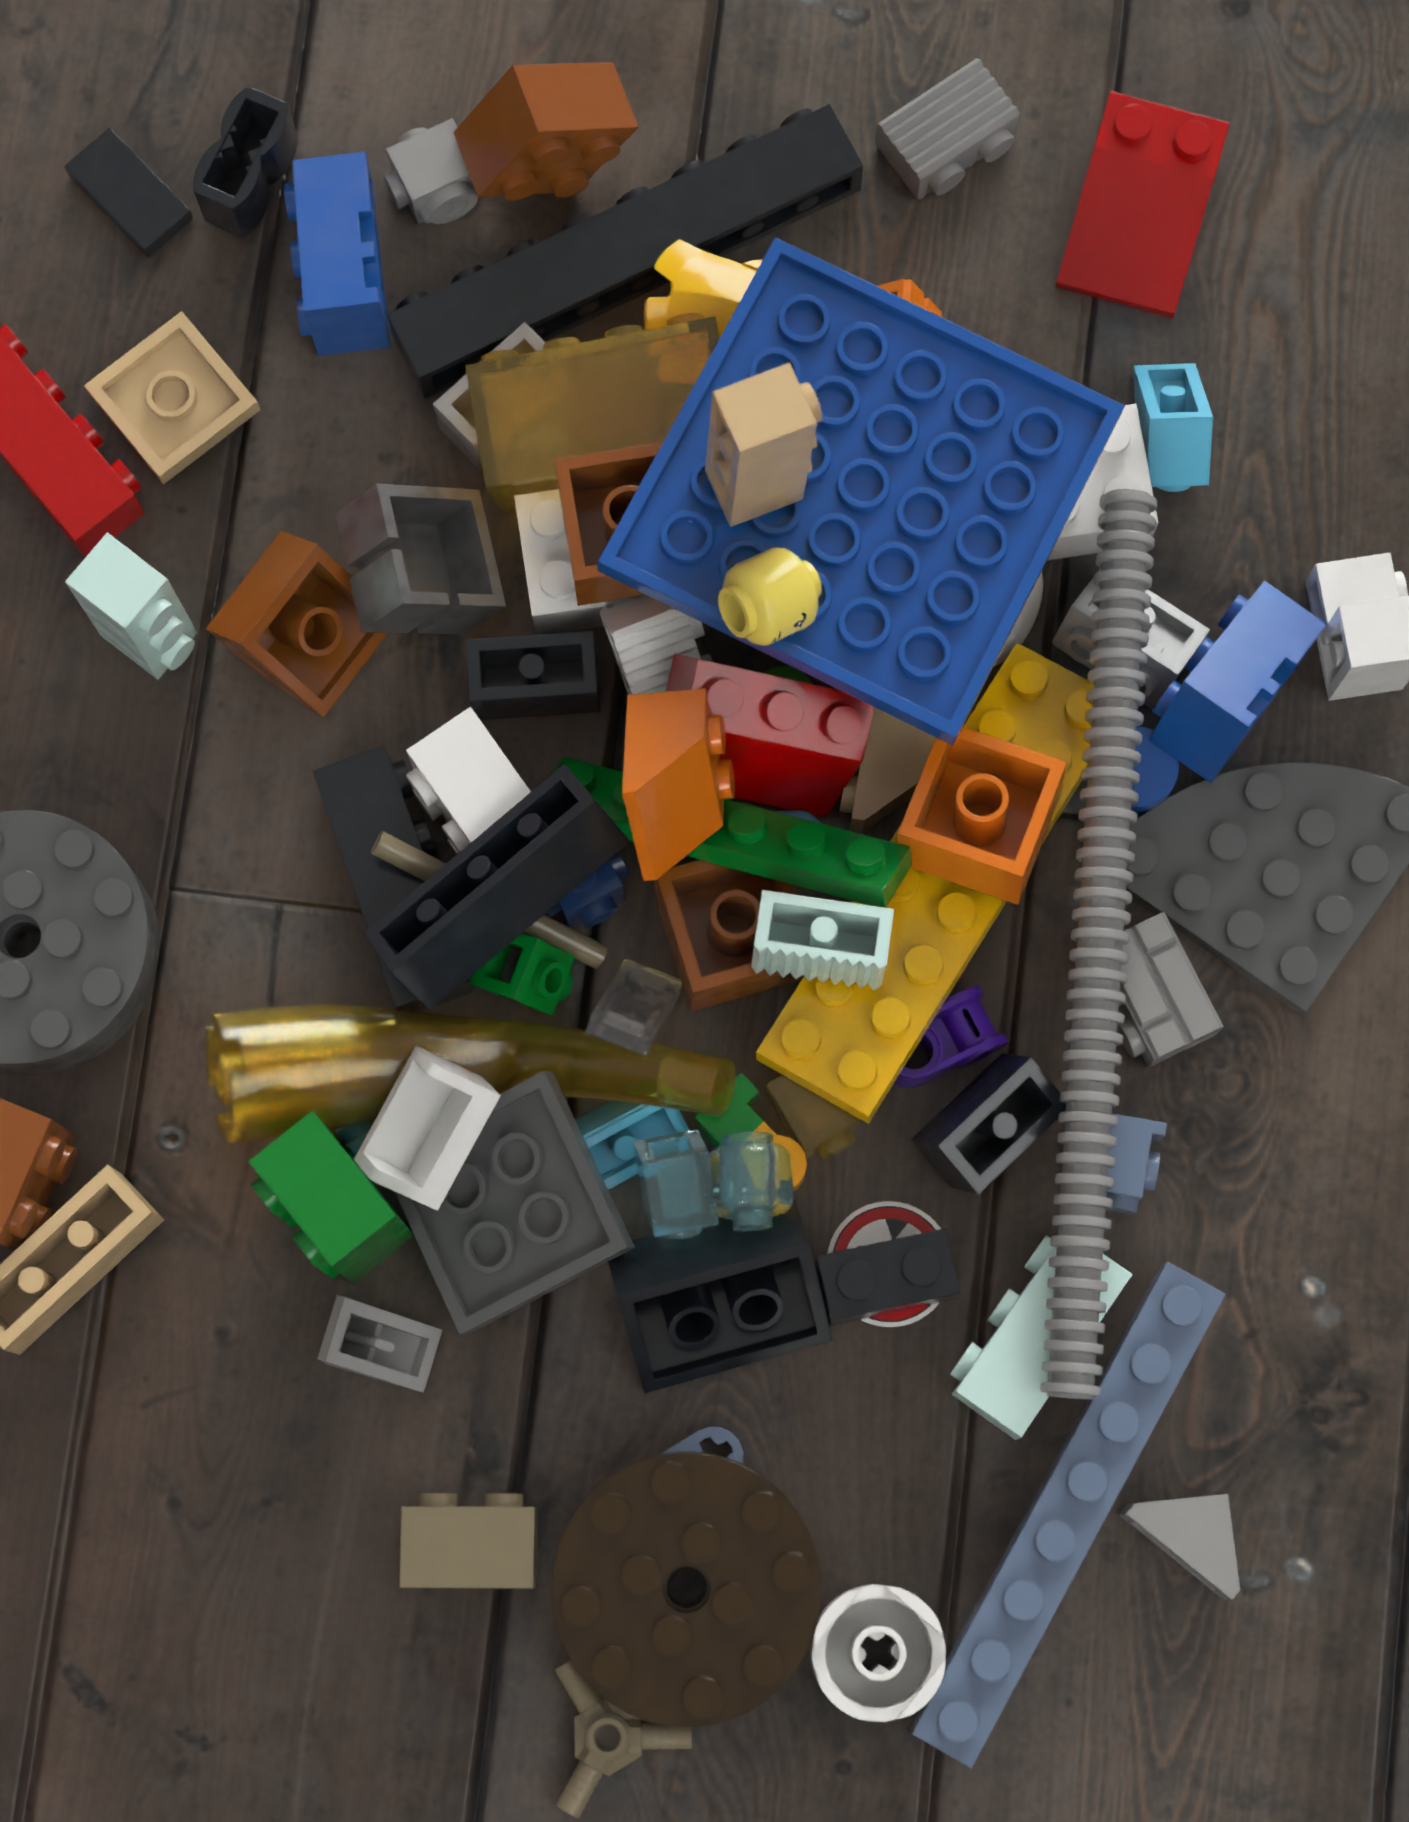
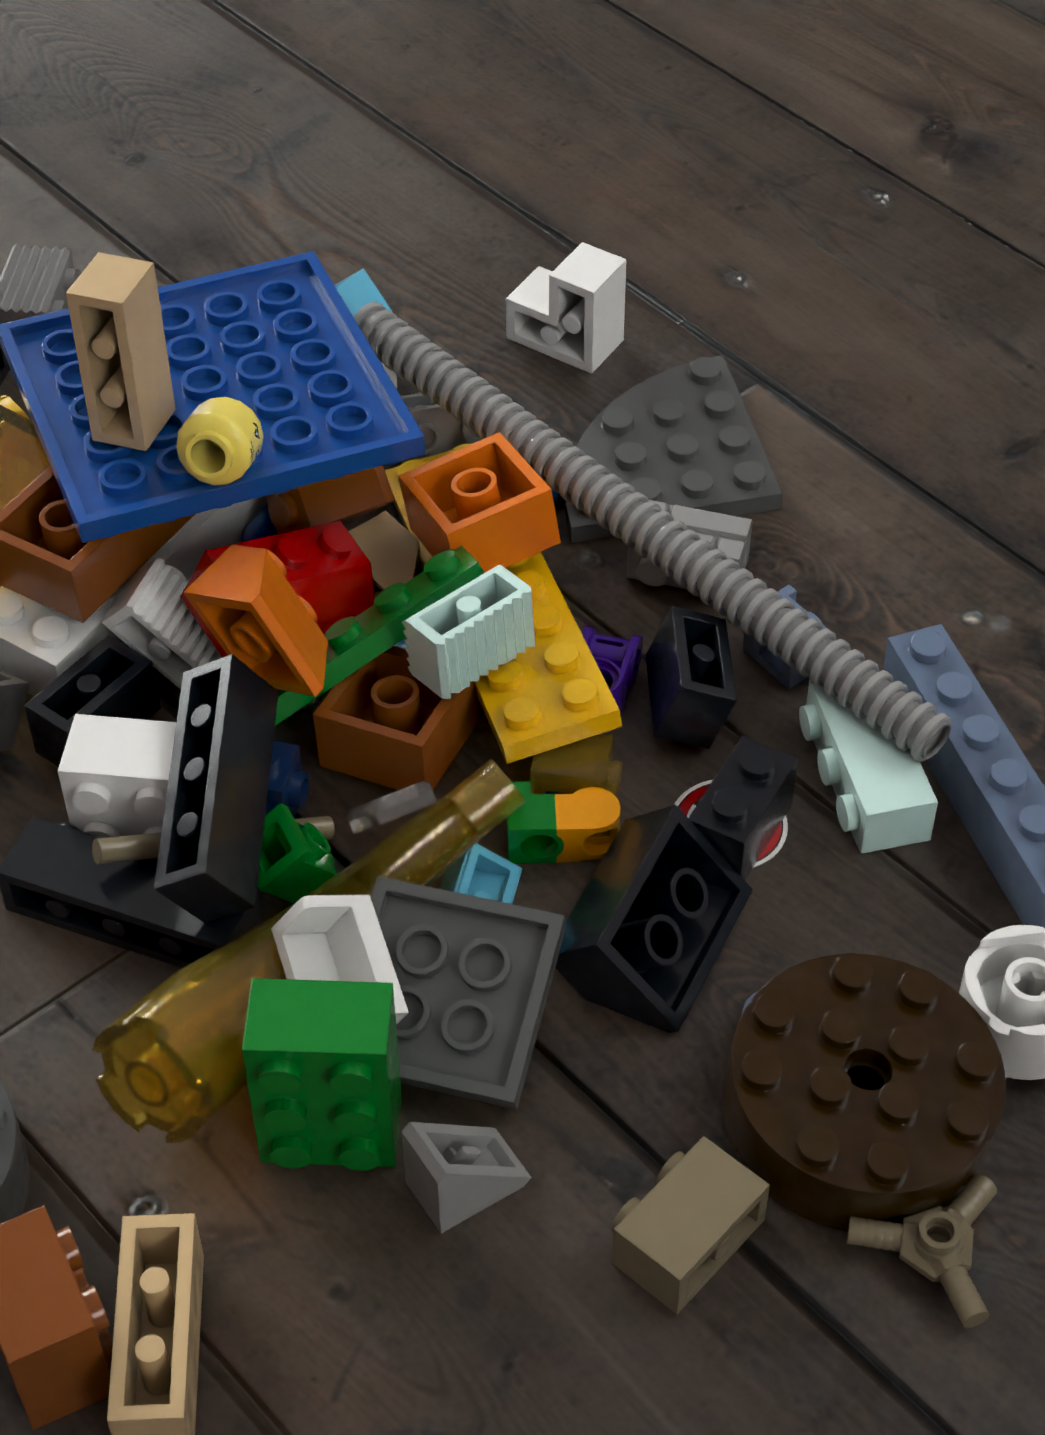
camera: 50 degrees left, 30 degrees down
(676, 1184) = (548, 861): clear light blue brick -> none
(751, 1180) = (591, 813): clear light blue head -> none
(1142, 204) = (183, 229): red slope -> none
(1234, 679) = (539, 369): wedge -> none

